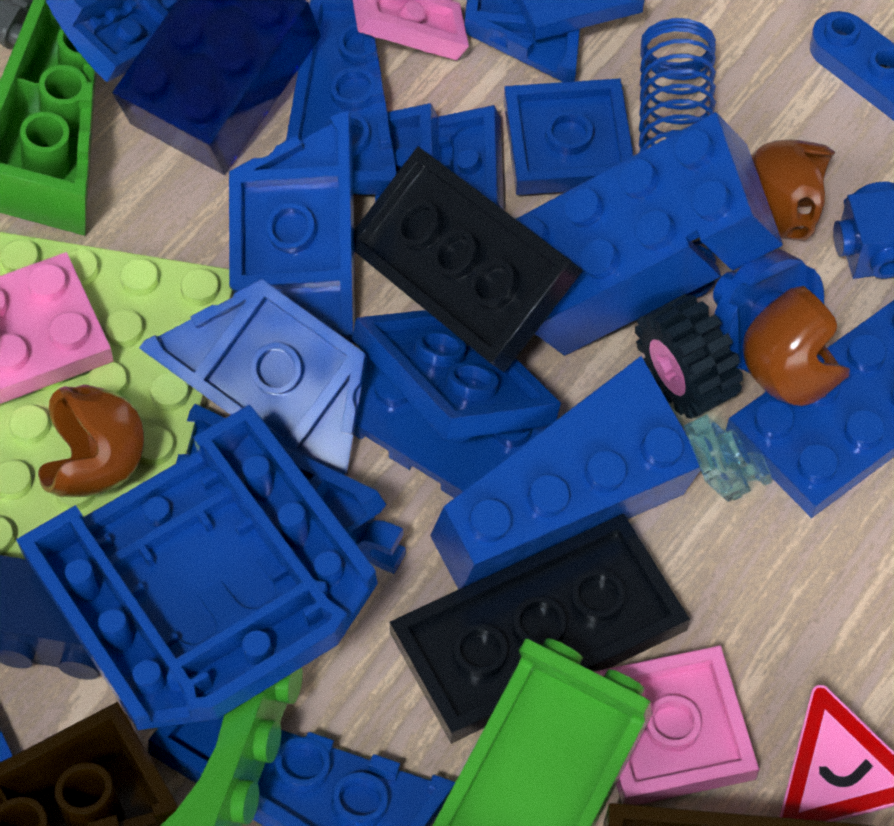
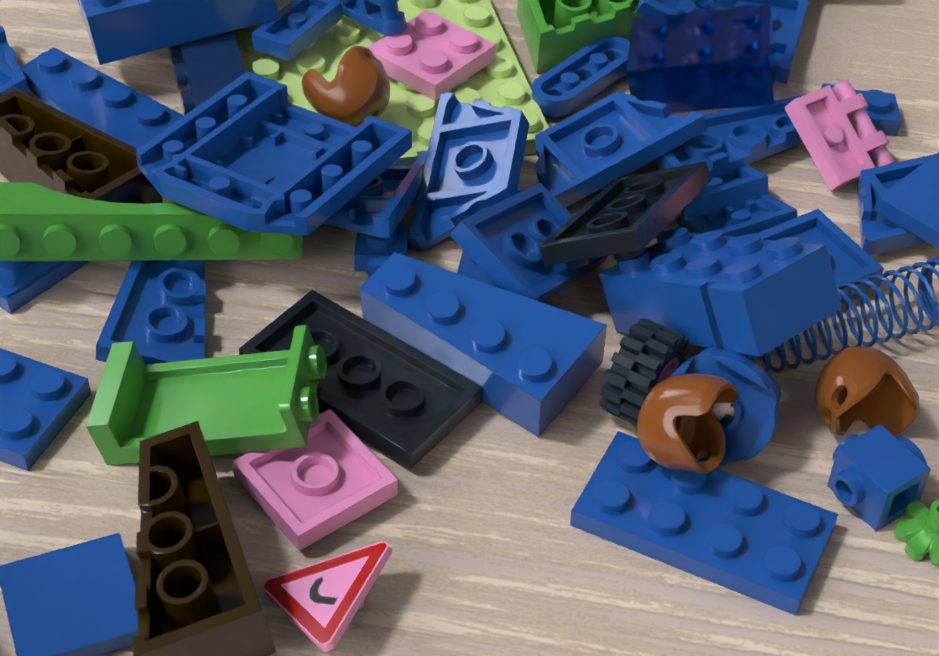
camera: 65 degrees right, 15 degrees down
(139, 173) = (581, 76): none -> blue plate
(724, 459) = (552, 415): clear light blue plate -> none

